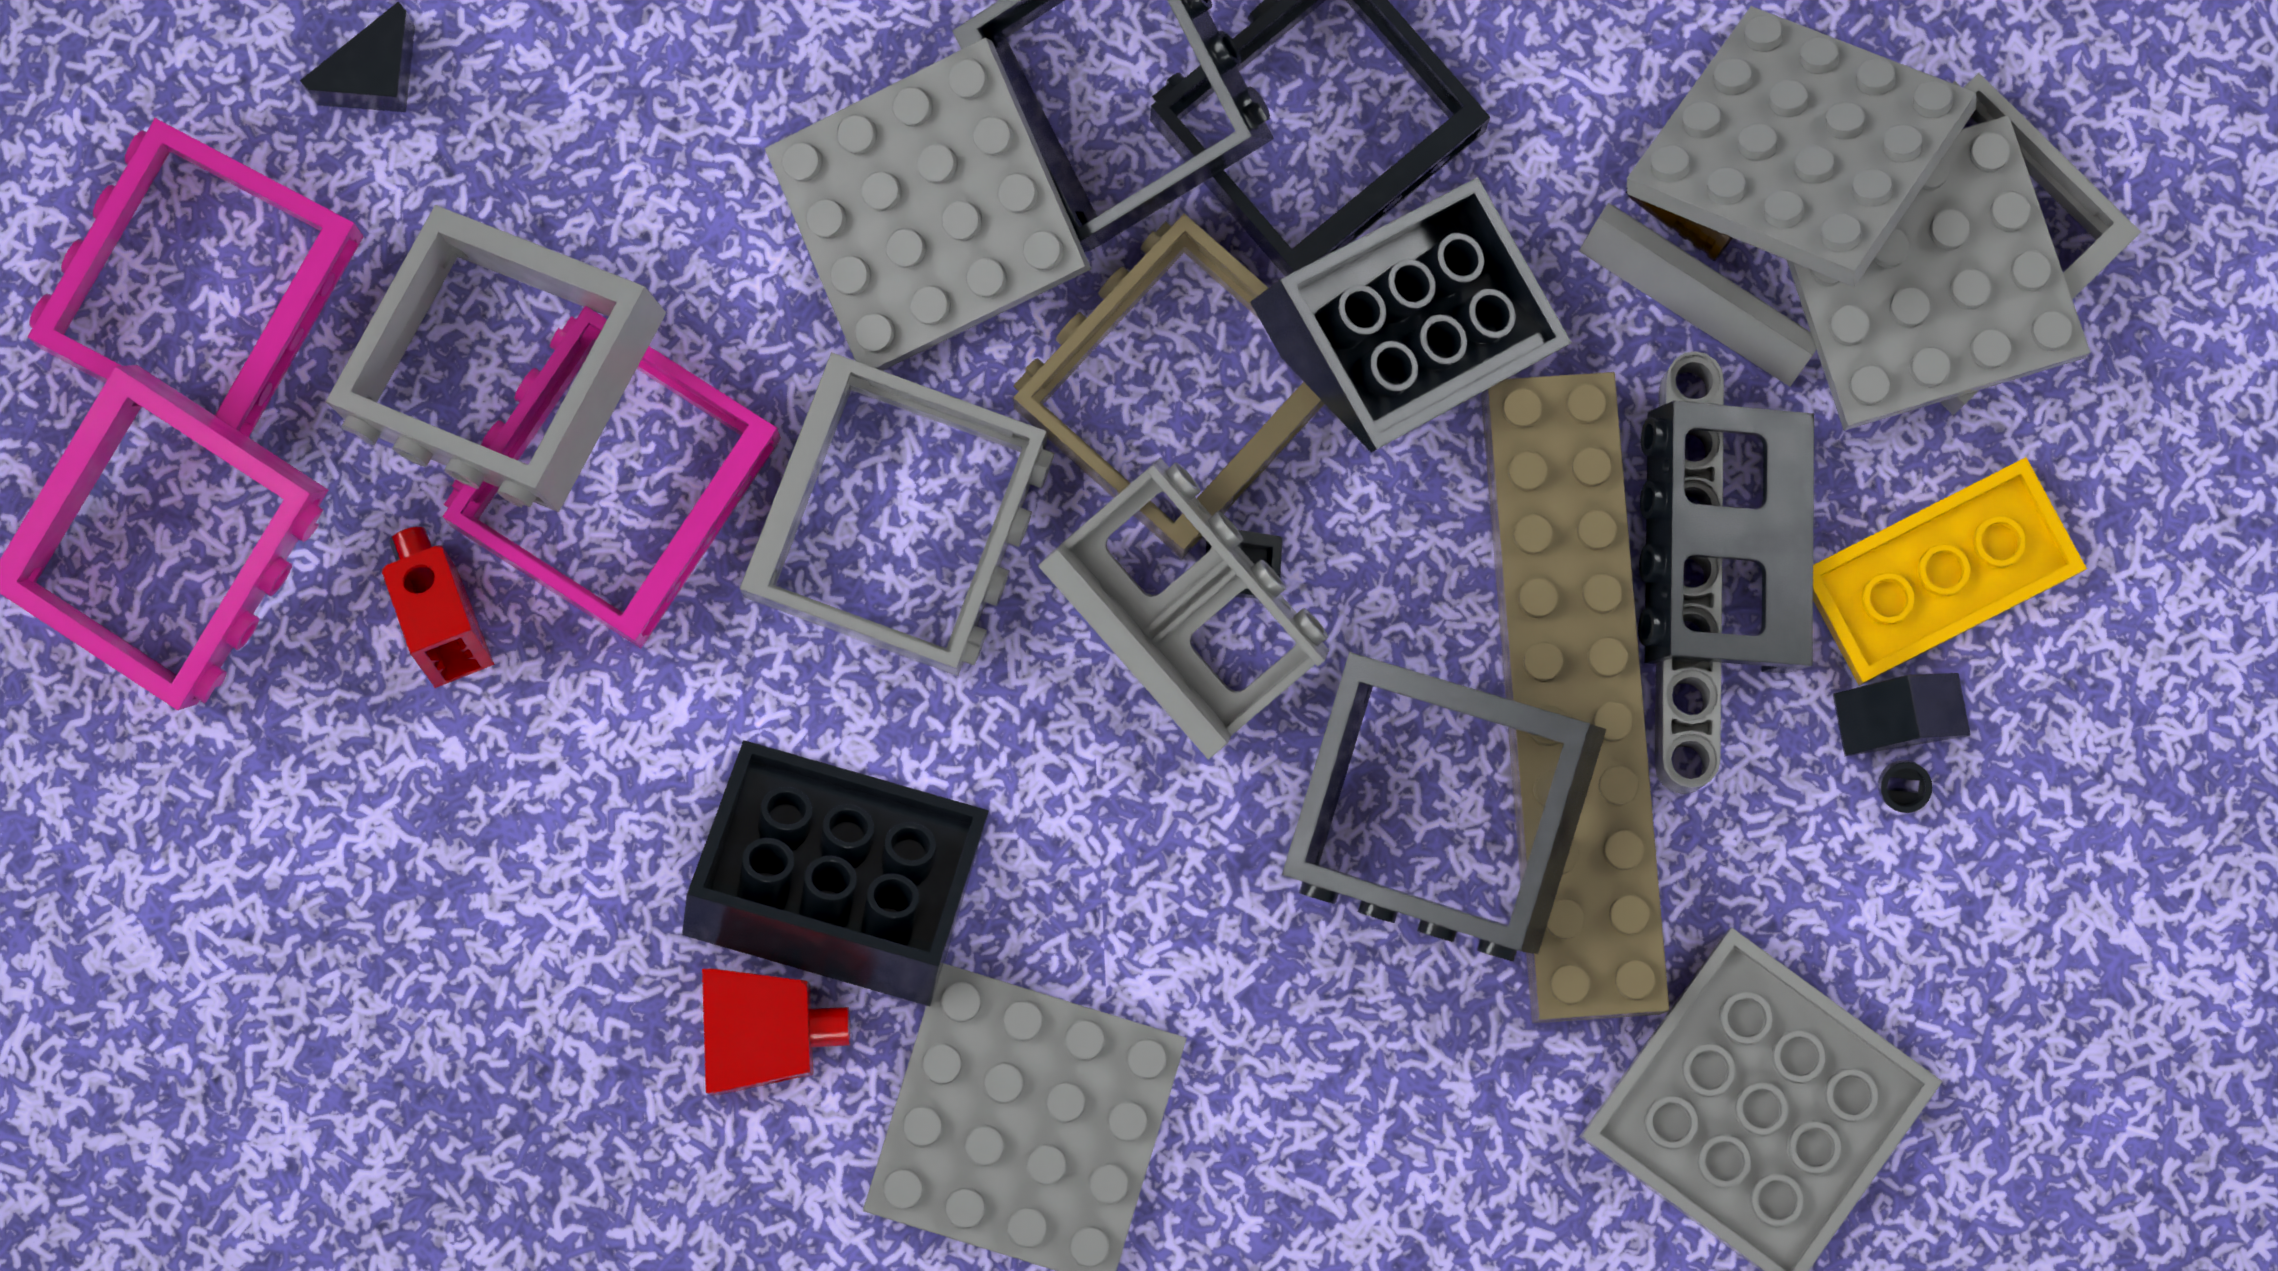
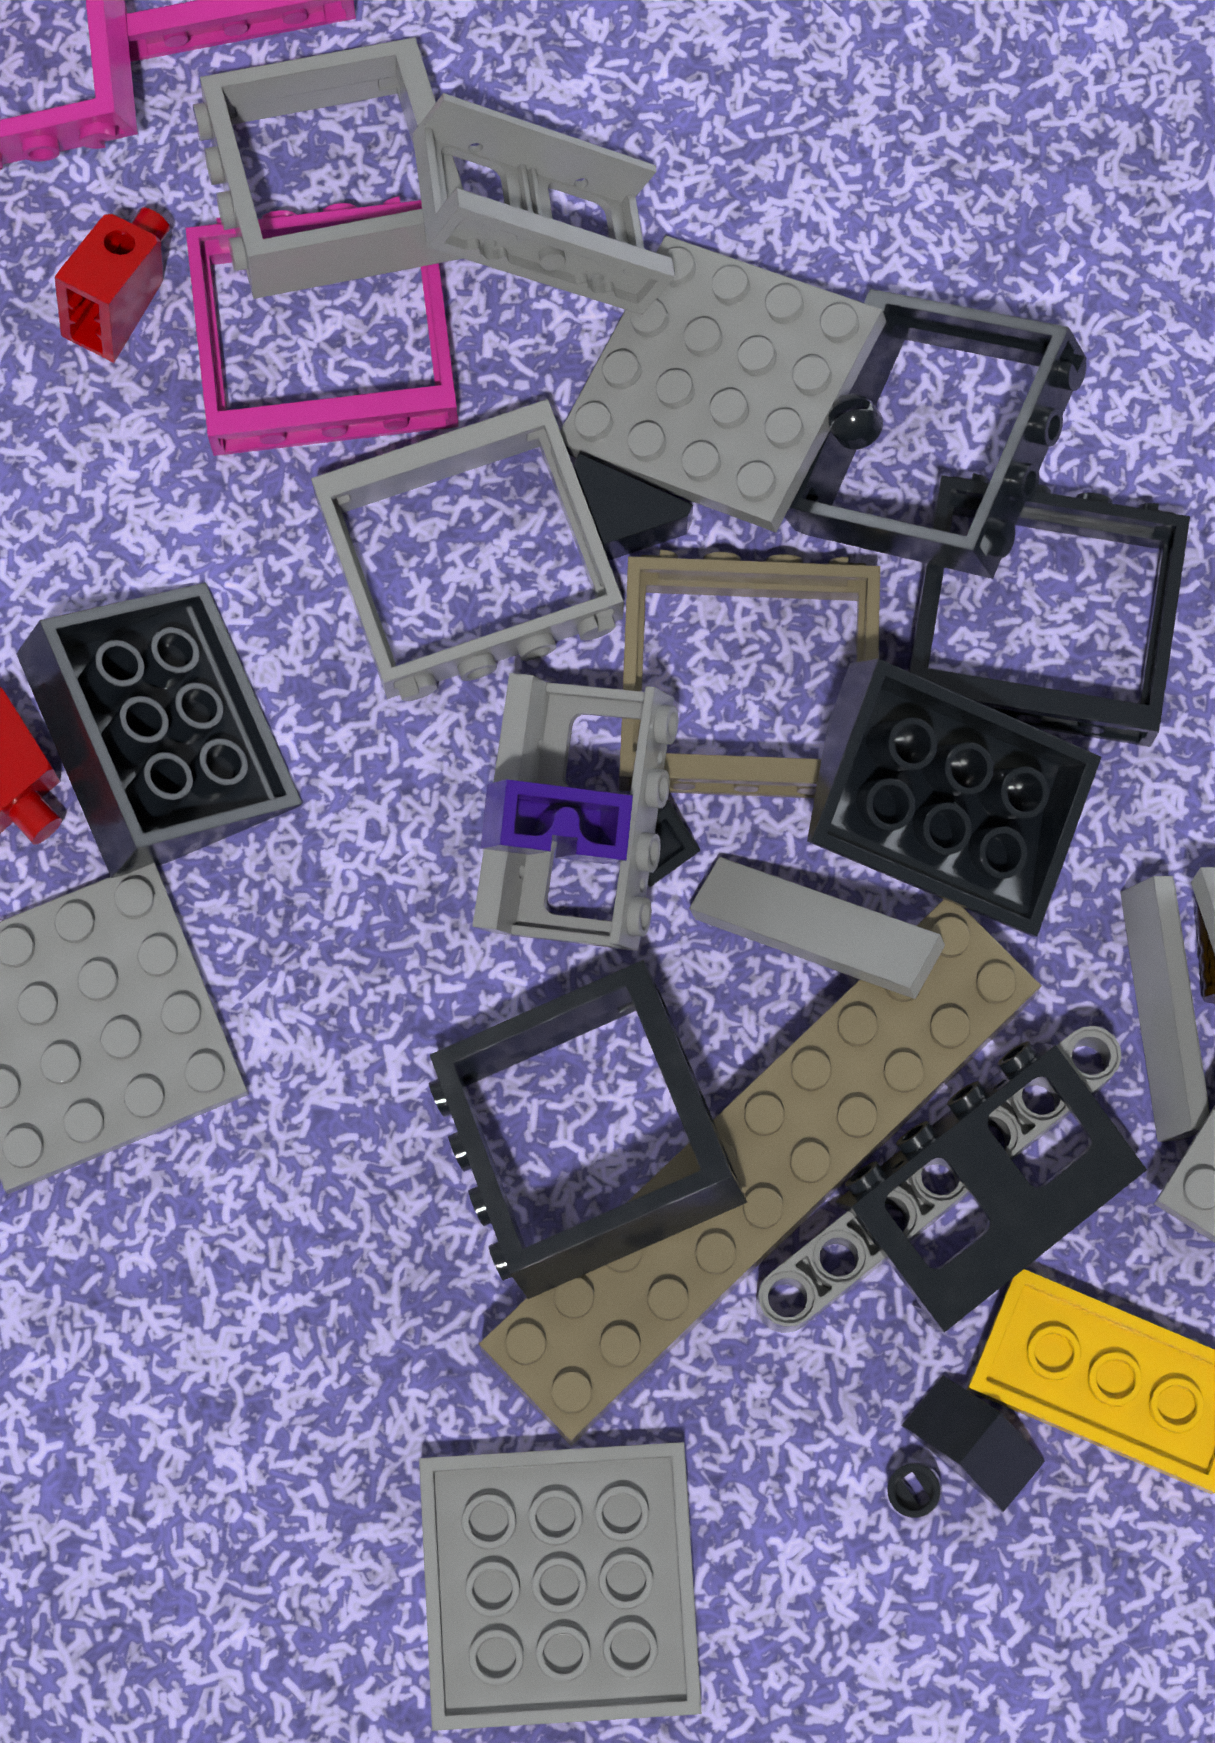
camera: 55 degrees right, 5 degrees down
(695, 263) = (521, 231): none -> light grey window
(969, 365) = (629, 511): none -> black slope
(1065, 137) = (855, 421): none -> black hinge
(1192, 627) = (582, 821): none -> dark purple brick
(1428, 500) = (817, 927): none -> light grey tile

